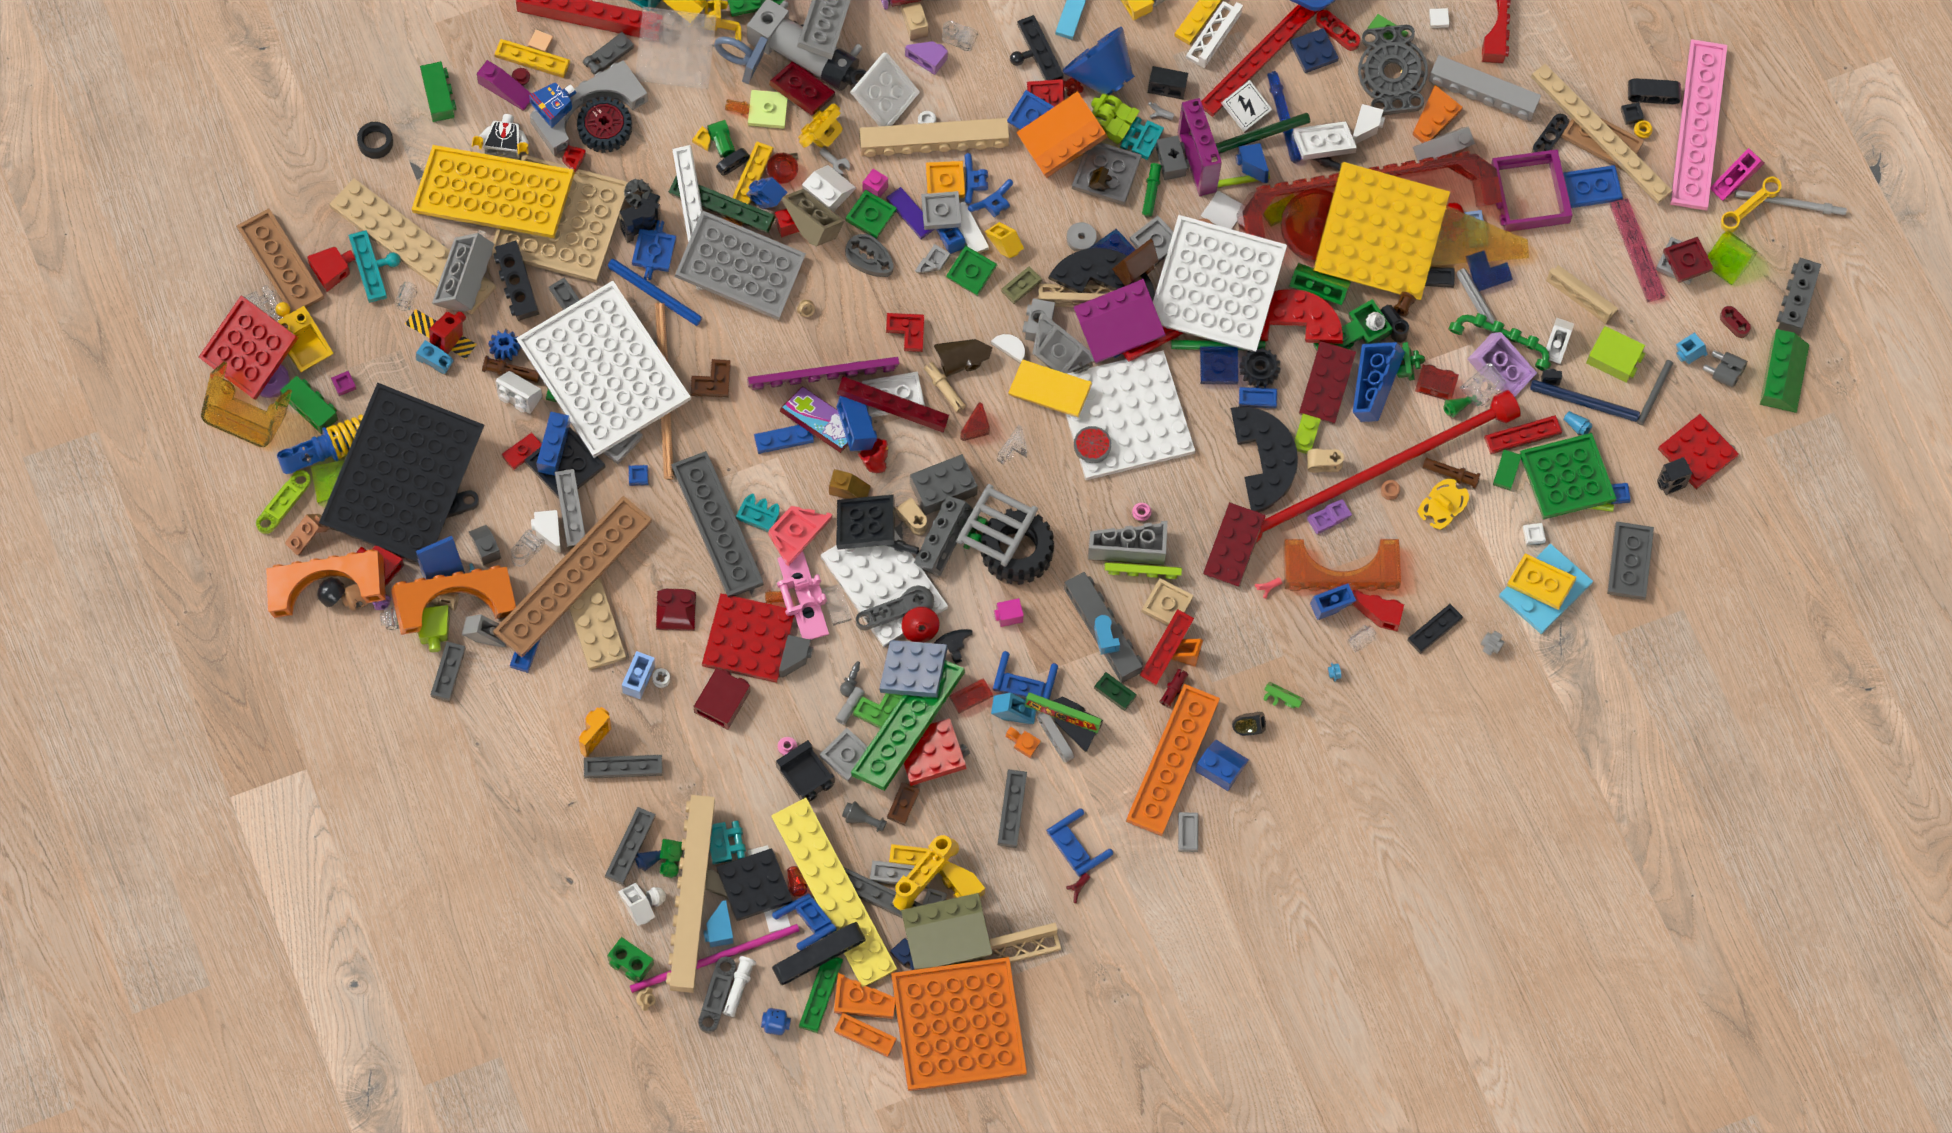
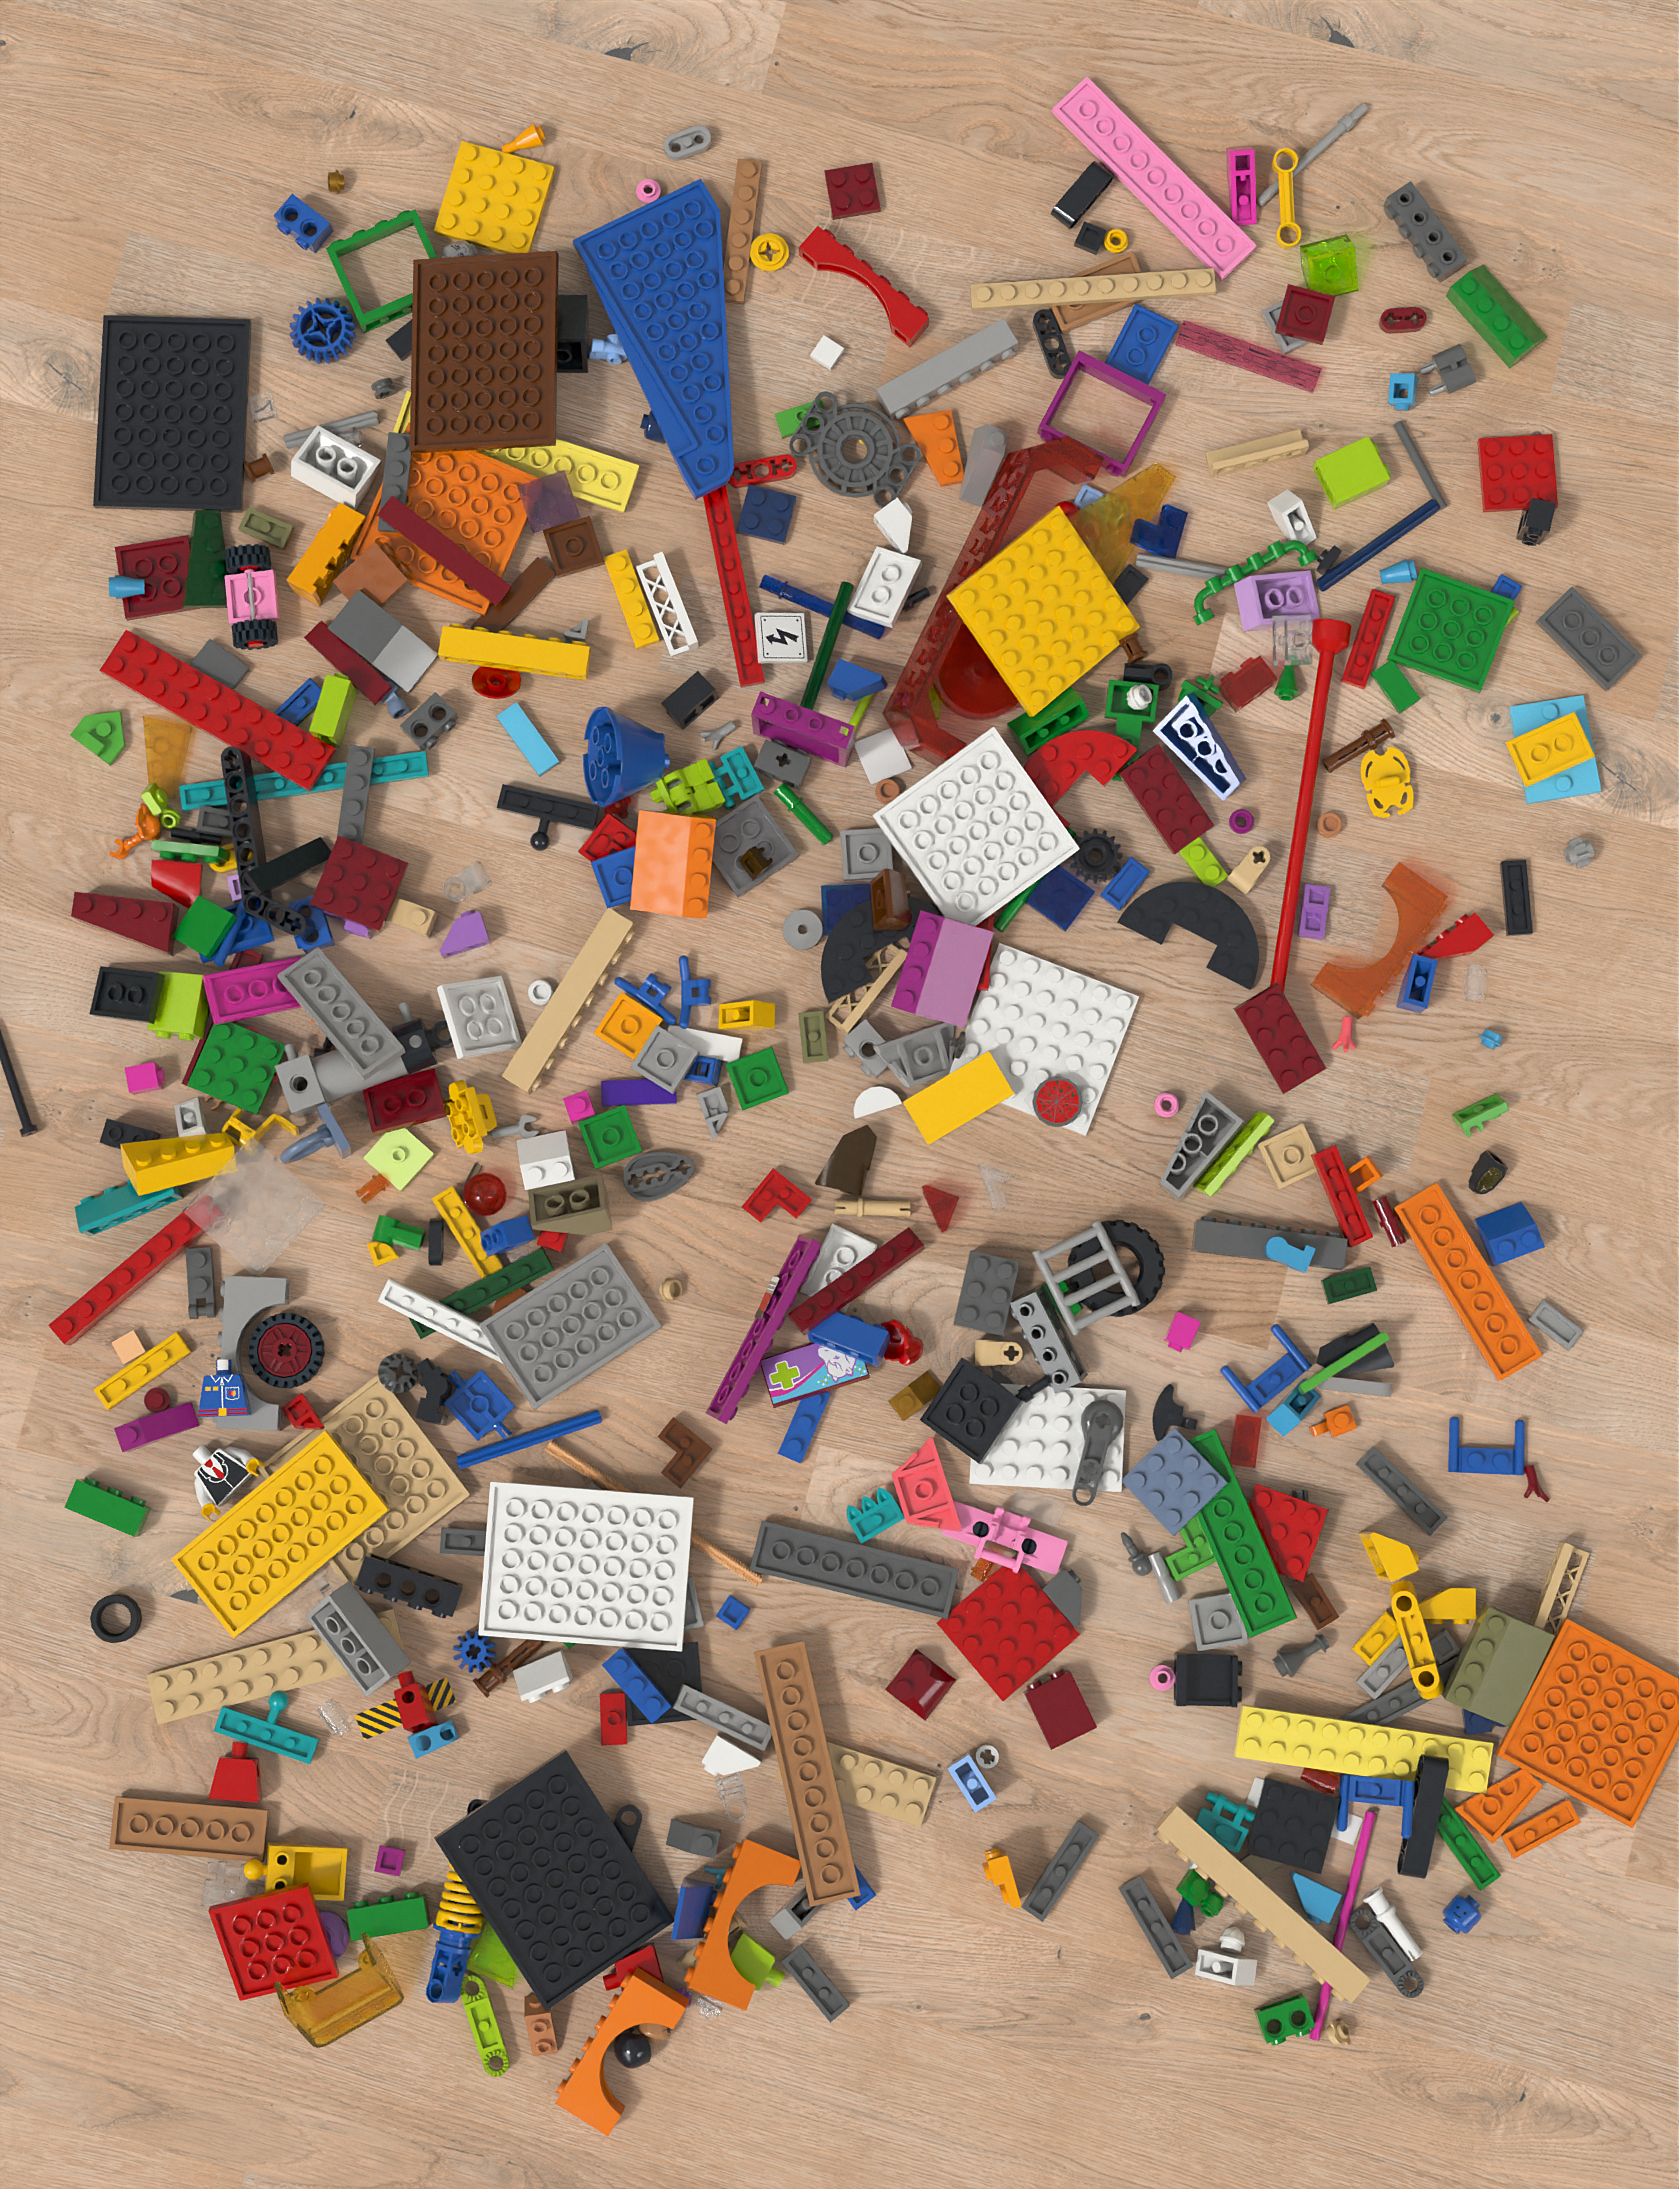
camera: 50 degrees left, 15 degrees up
(917, 617) = (1129, 1437): red dish -> none
(964, 819) = (1389, 1557): none -> yellow slope
(1350, 432) = (1246, 815): none -> magenta plate
(1534, 534) = (1486, 714): white tile -> none

